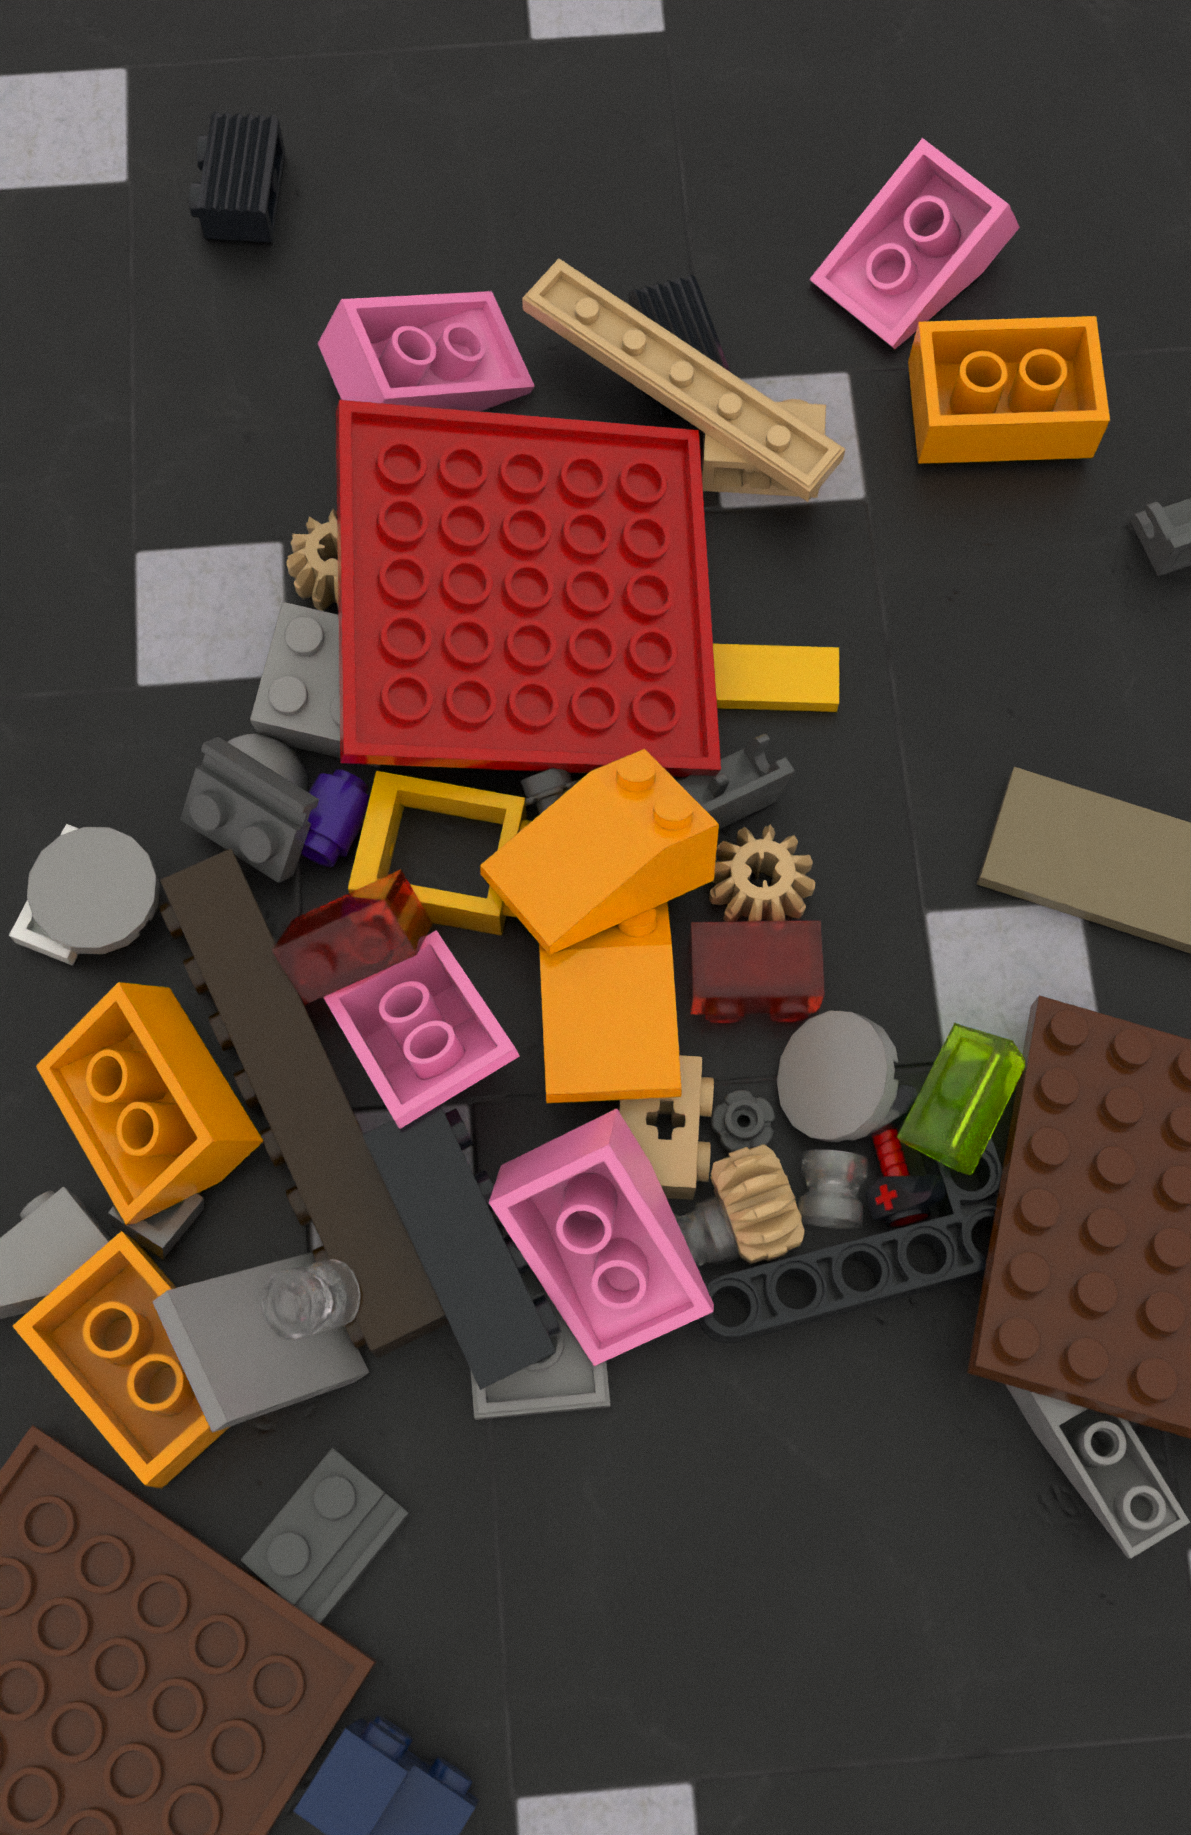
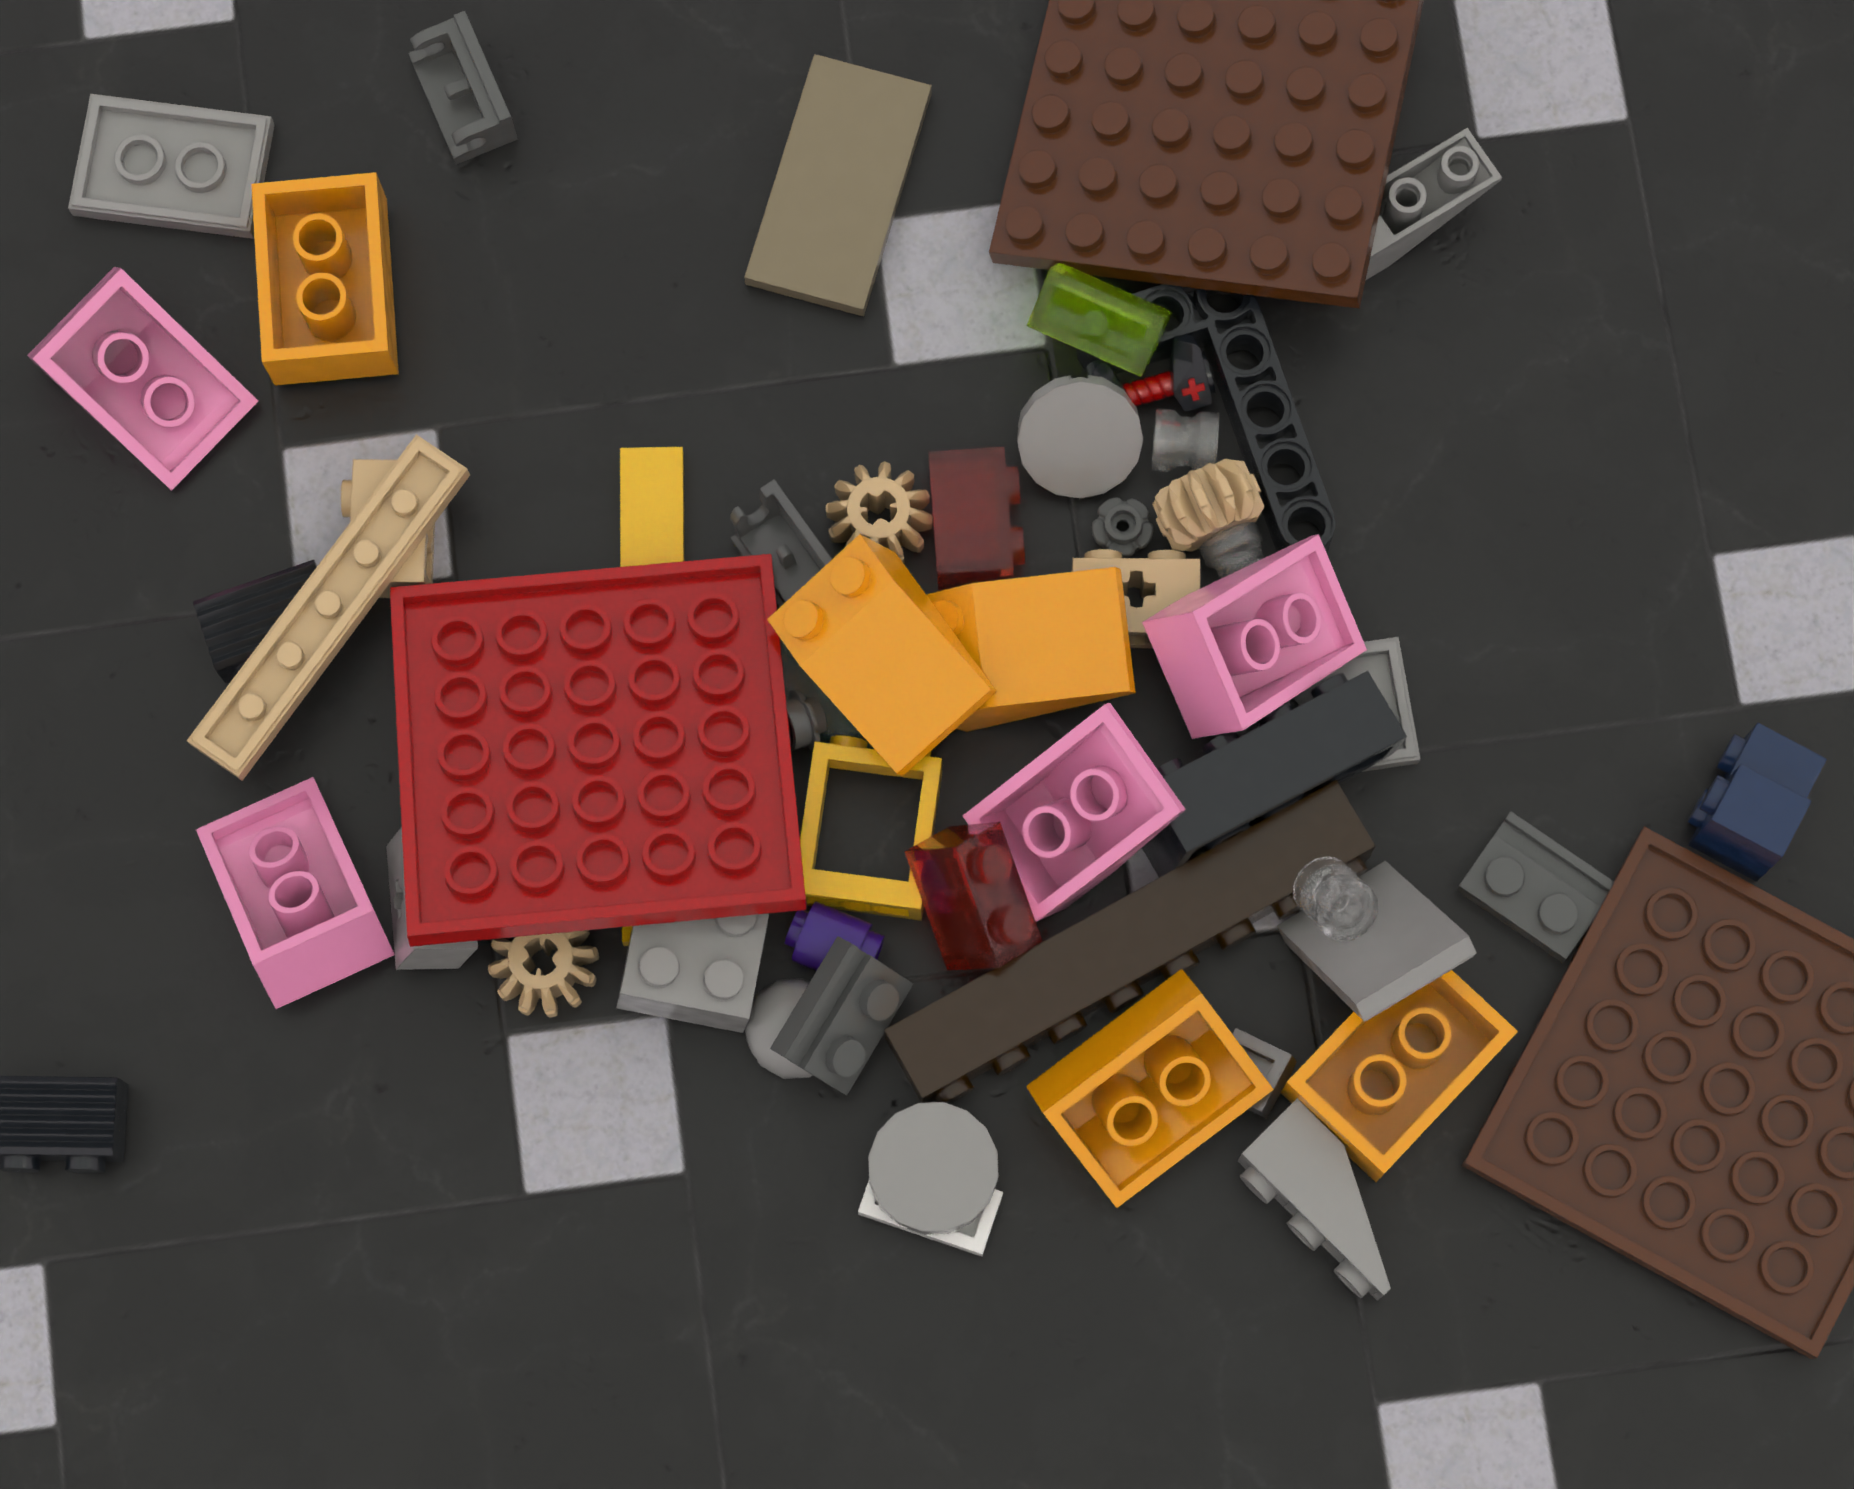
camera: 90 degrees left, 5 degrees up
(1129, 275) = (170, 165): none -> light grey tile

